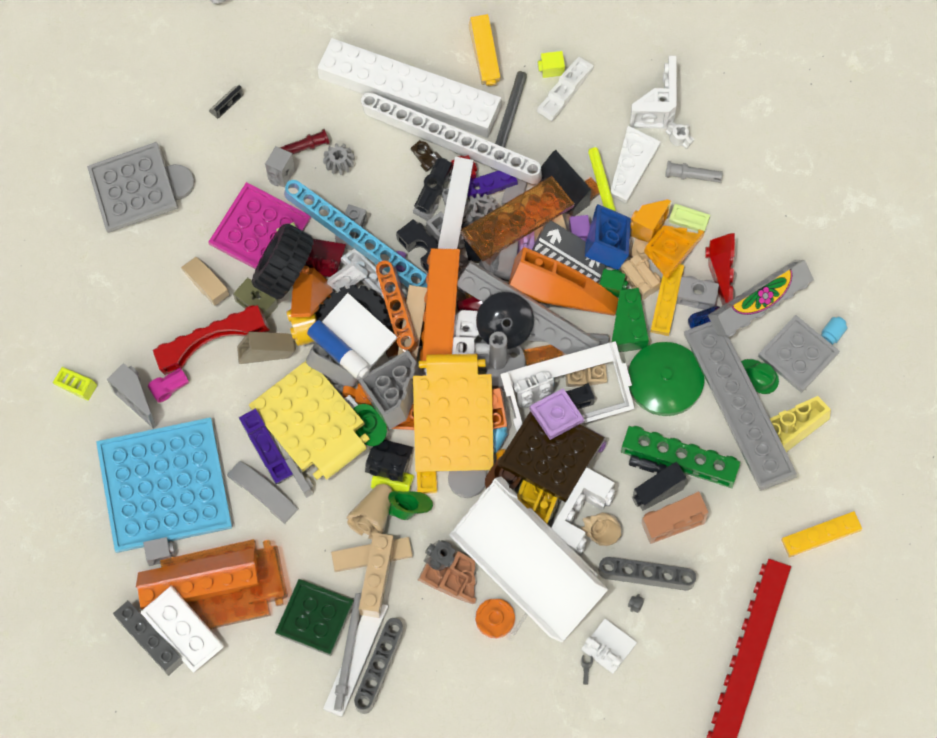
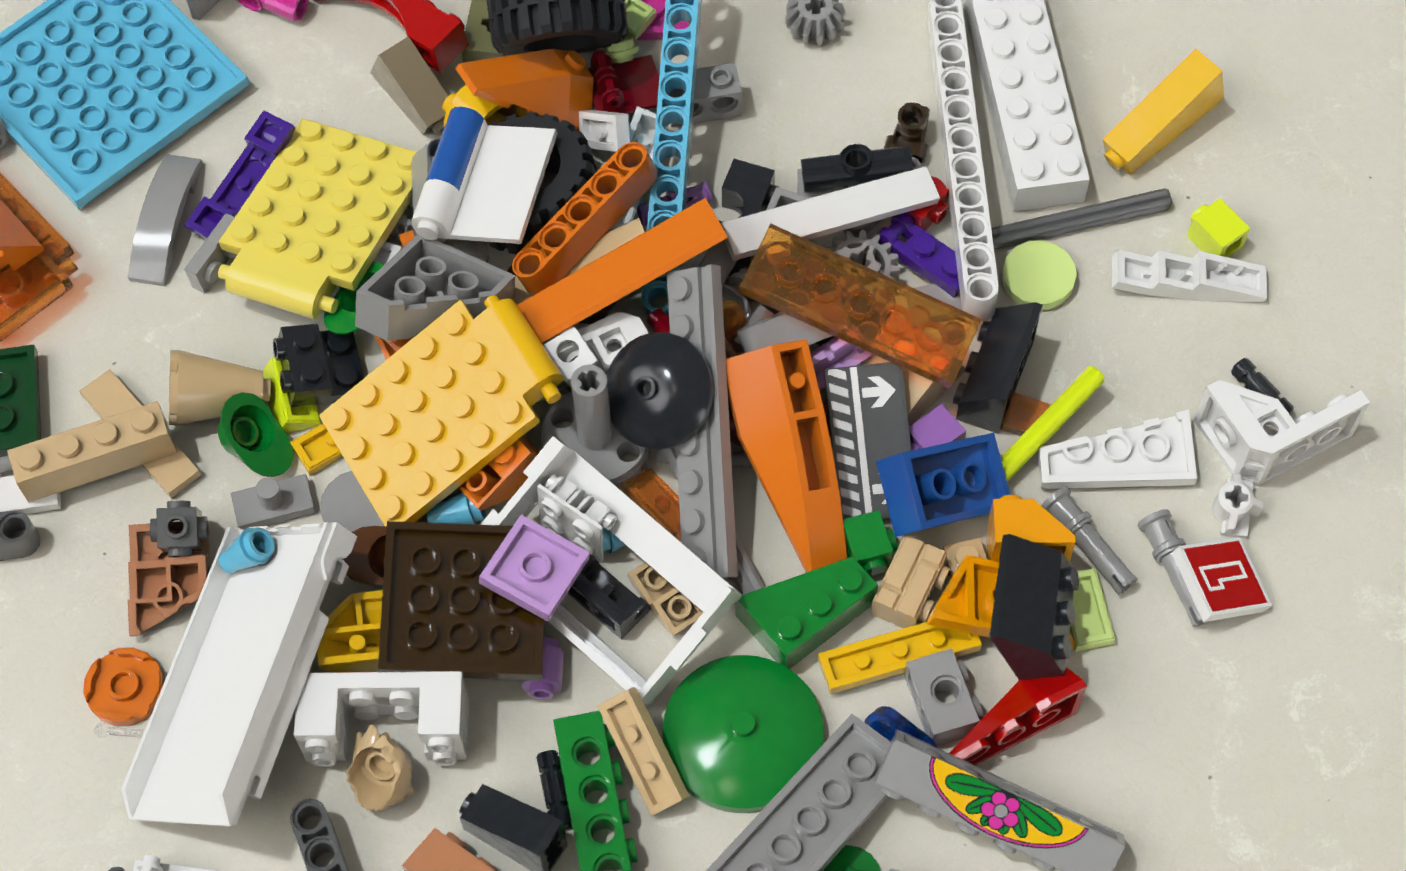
camera: 60 degrees right, 5 degrees down
(442, 514) = (273, 502): none -> light grey tile
(471, 527) = (249, 549): none -> medium azure cone
(527, 143) = (1039, 274): none -> yellowish green tile
(632, 93) = (1245, 372): none -> black axle
(651, 197) = (1089, 540): none -> light grey pin
(655, 419) = (643, 751): none -> tan plate
(689, 232) = (1033, 608): none -> black slope
(709, 159) = (1221, 579): none -> tile

